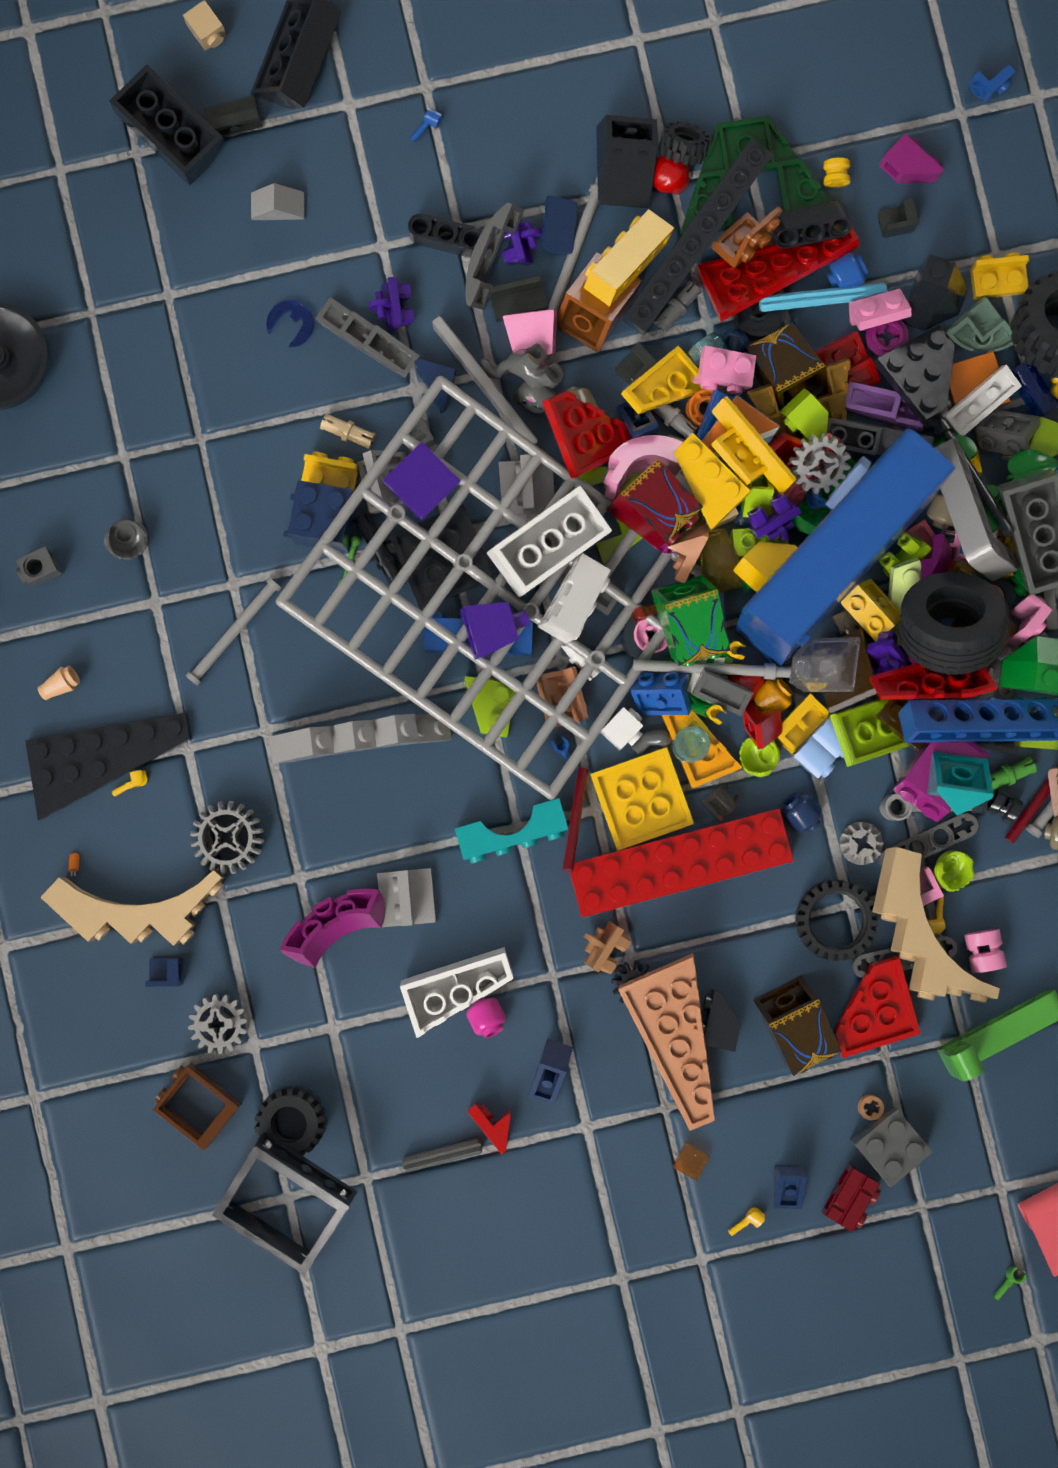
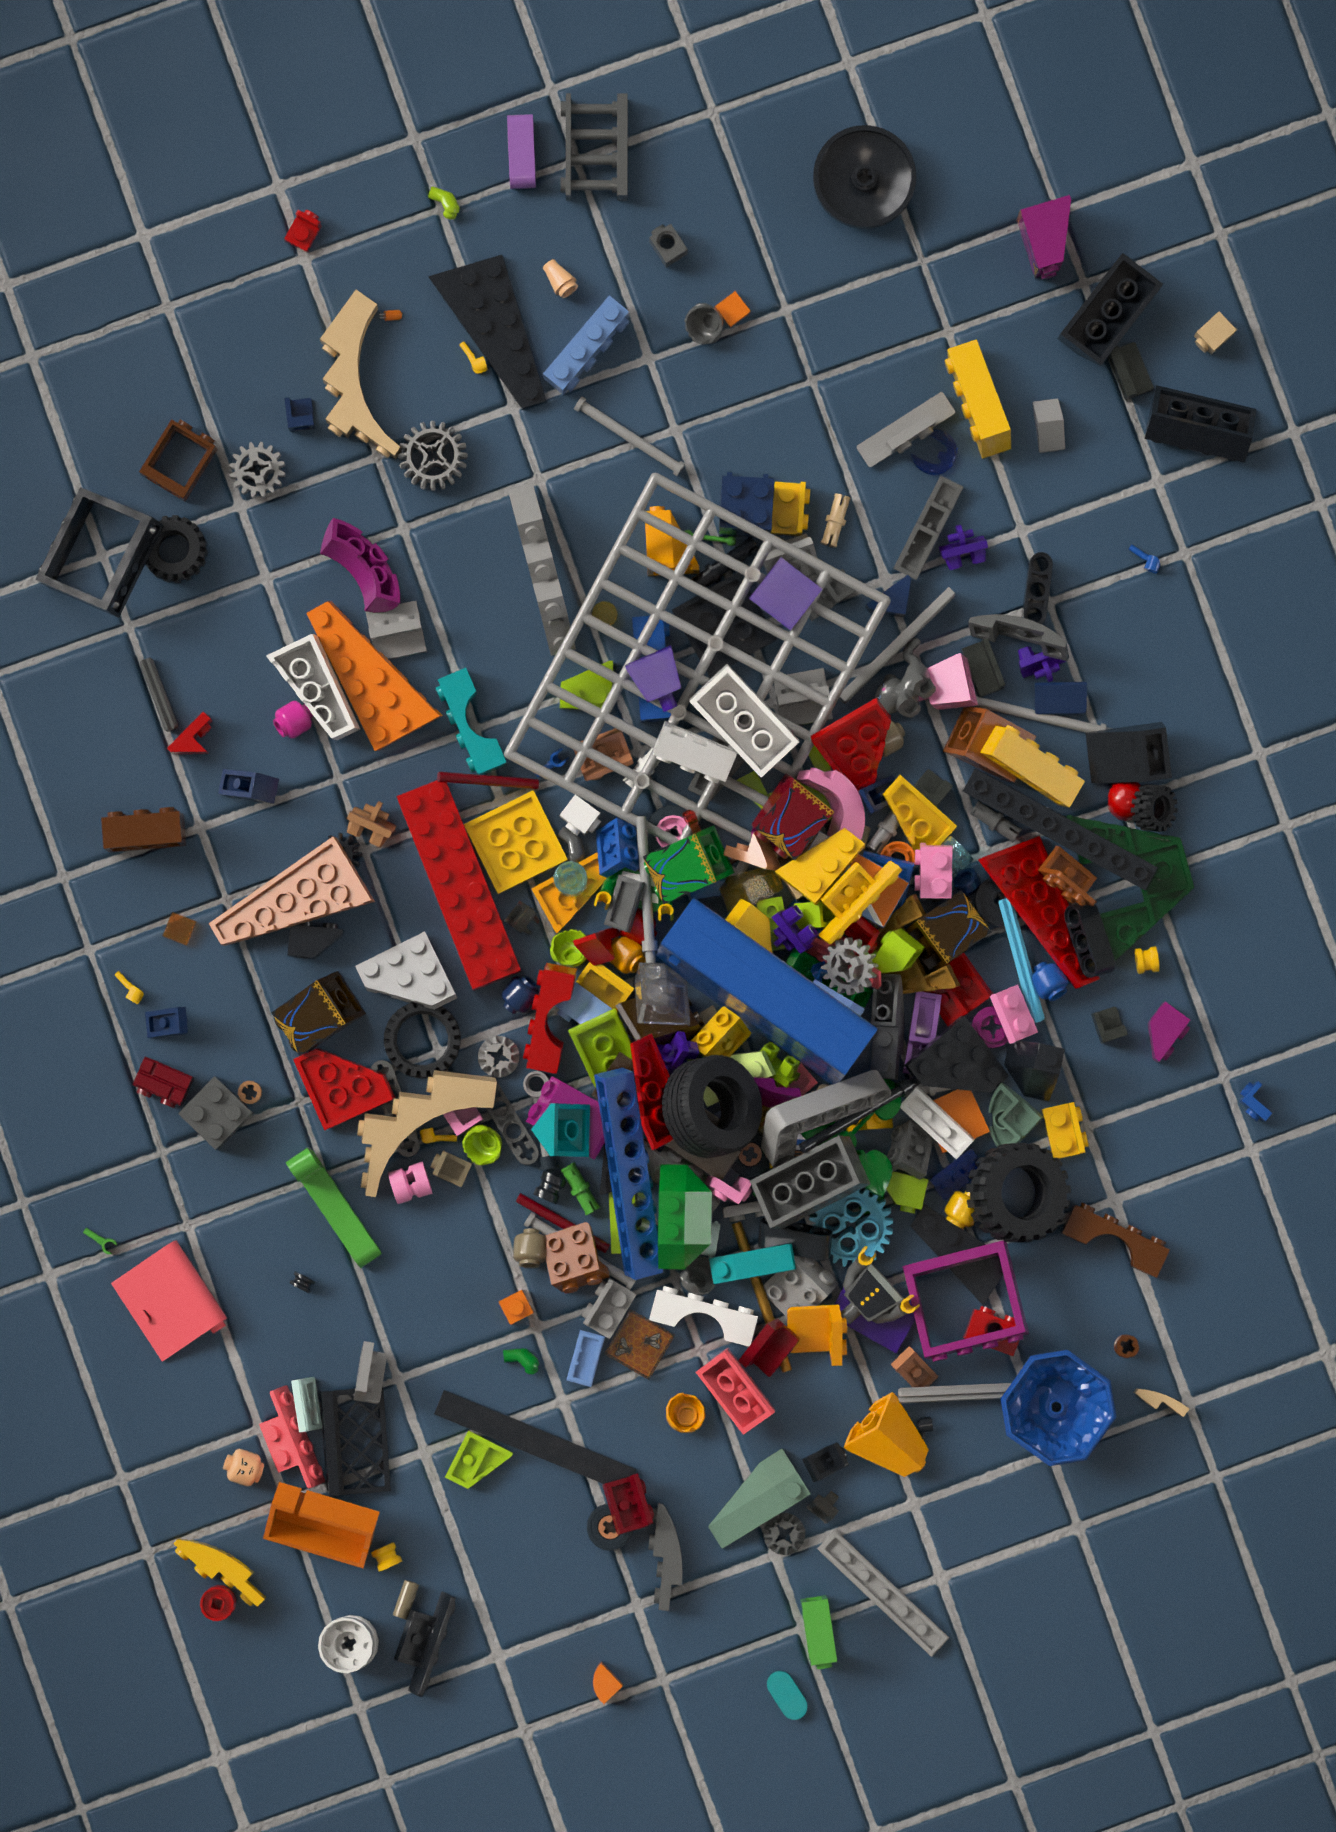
camera: 80 degrees right, 0 degrees up
(81, 178) = (1045, 234): none -> magenta slope
(115, 508) = (733, 309): none -> orange tile
(127, 658) = (586, 345): none -> medium blue brick
(241, 267) = (979, 399): none -> yellow wedge
(263, 348) = (905, 430): none -> light grey bracket
(352, 608) = (664, 547): none -> light orange slope
(414, 676) = (605, 612): none -> clear yellow tile
(464, 925) = (375, 687): none -> orange wing
(585, 1190) = (143, 830): none -> reddish brown brick
(767, 926) = (409, 974): none -> plate
(804, 773) = (545, 1048): none -> red arch
(973, 906) = (451, 1168): none -> dark tan bracket

